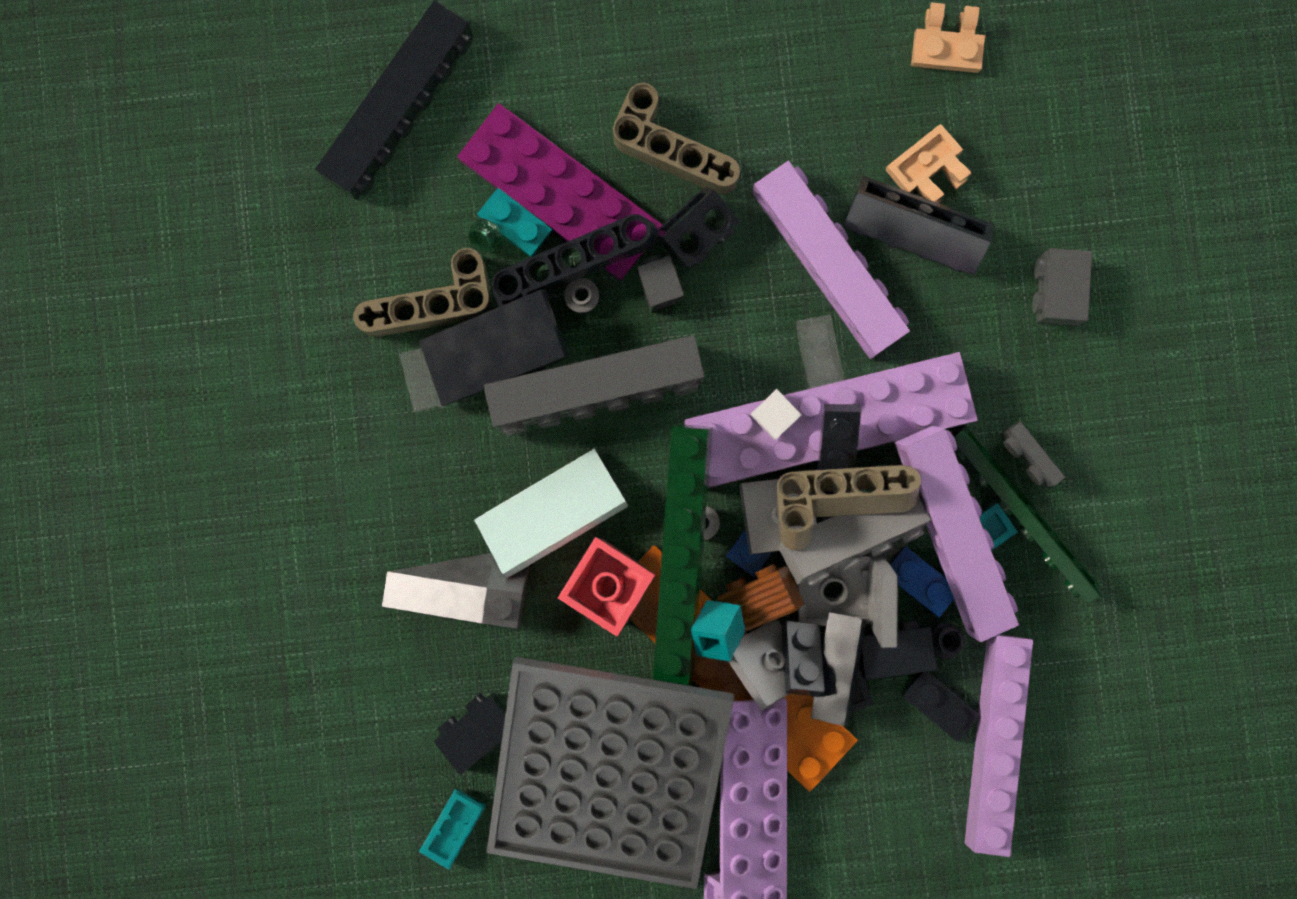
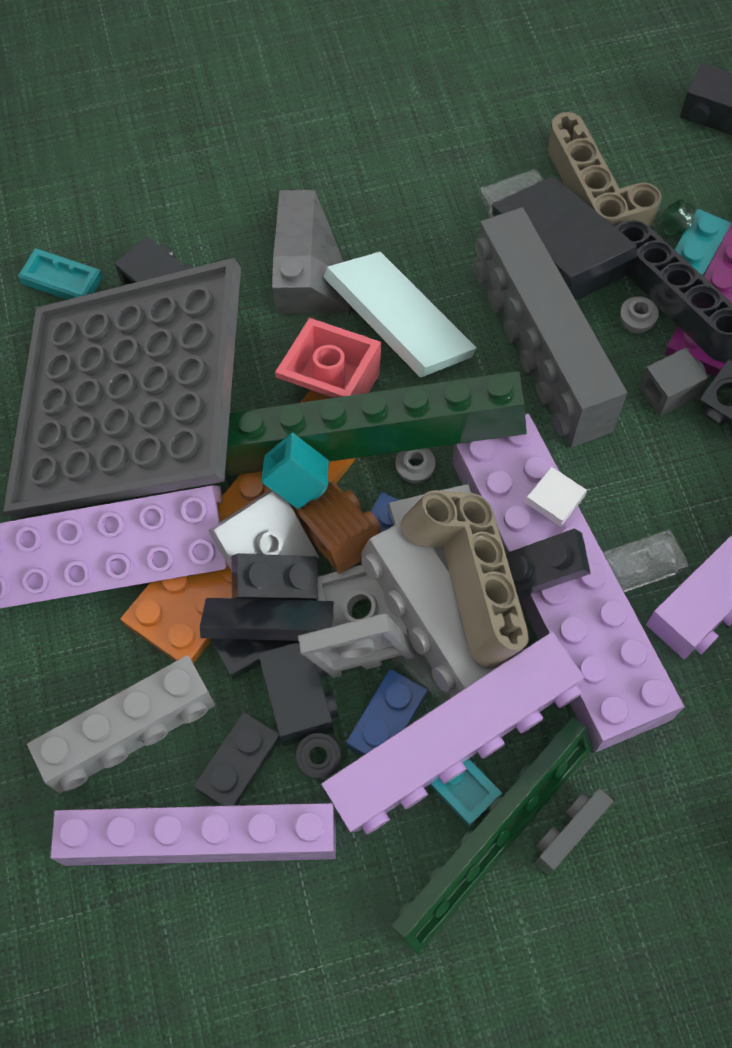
camera: 85 degrees right, 20 degrees down
(904, 796) = (121, 725): none -> light grey brick

